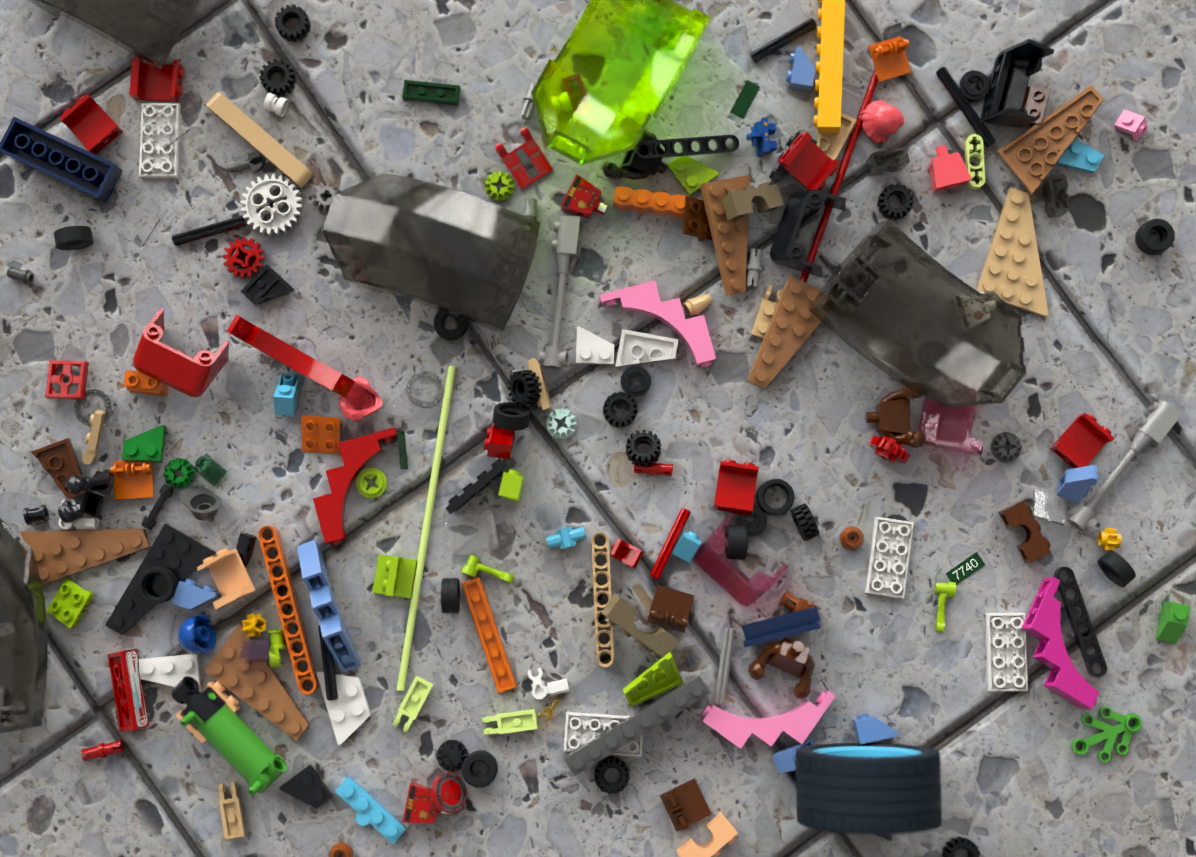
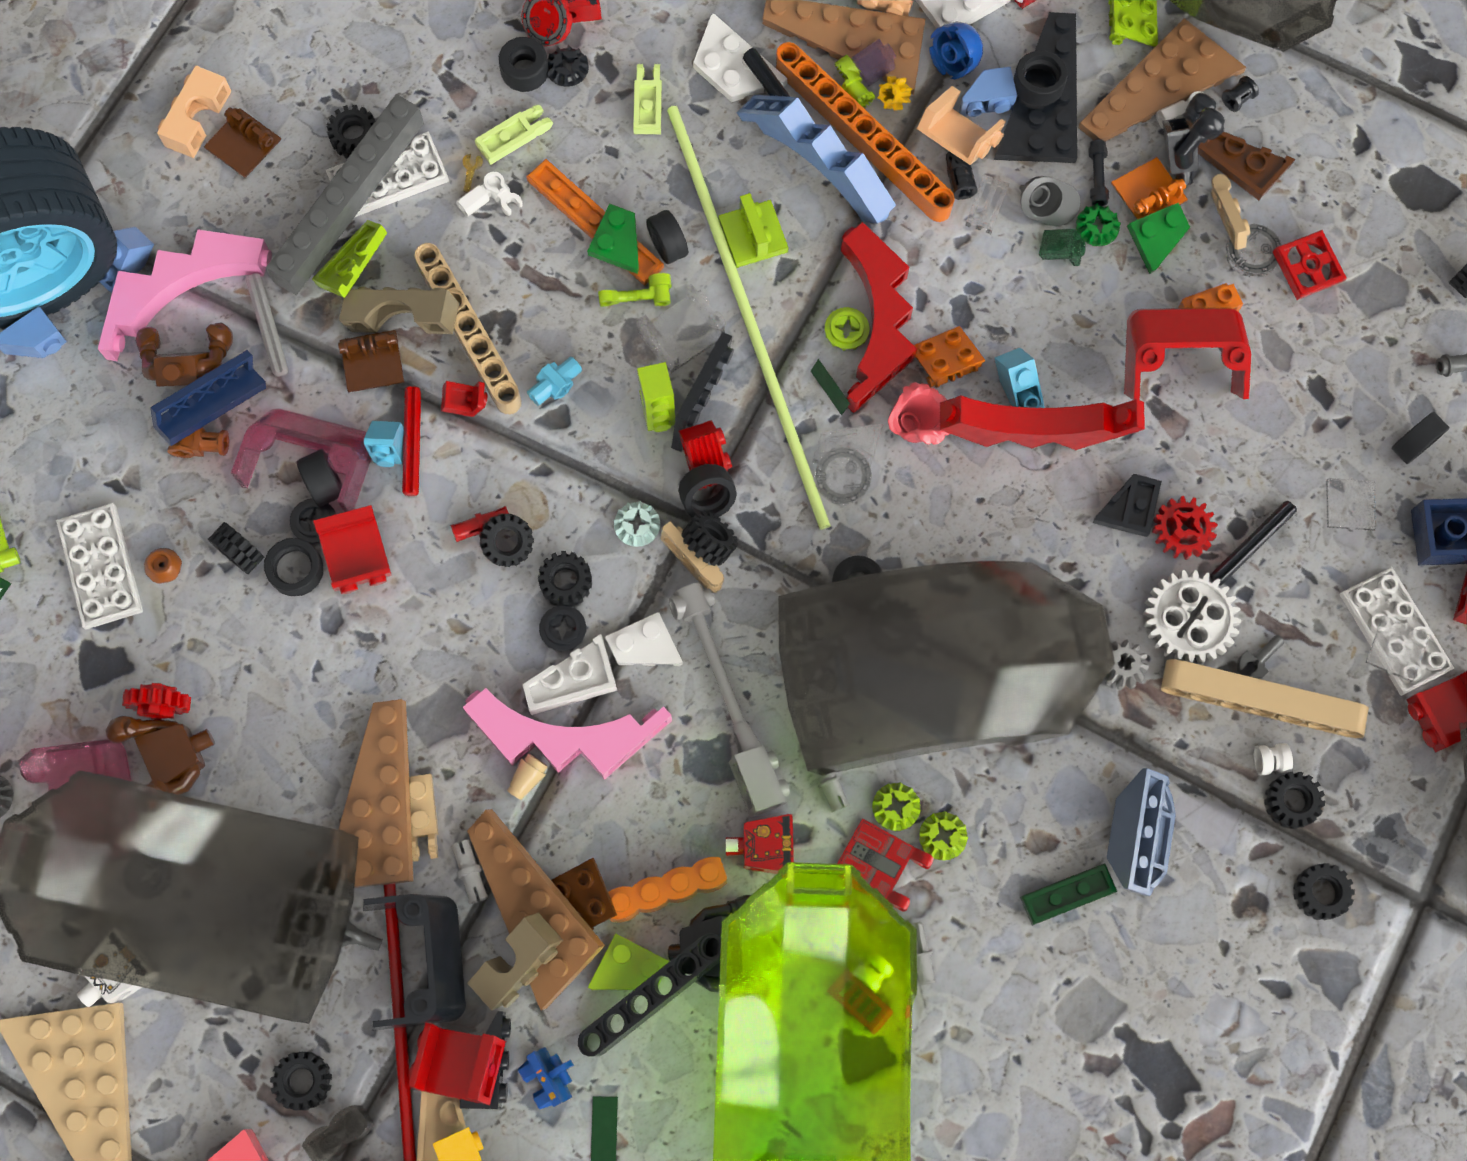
camera: 155 degrees right, 10 degrees down
(374, 99) = (1142, 832): none -> sand blue wedge
(481, 612) = (616, 239): none -> green wing
(488, 162) = (939, 849): none -> lime gear

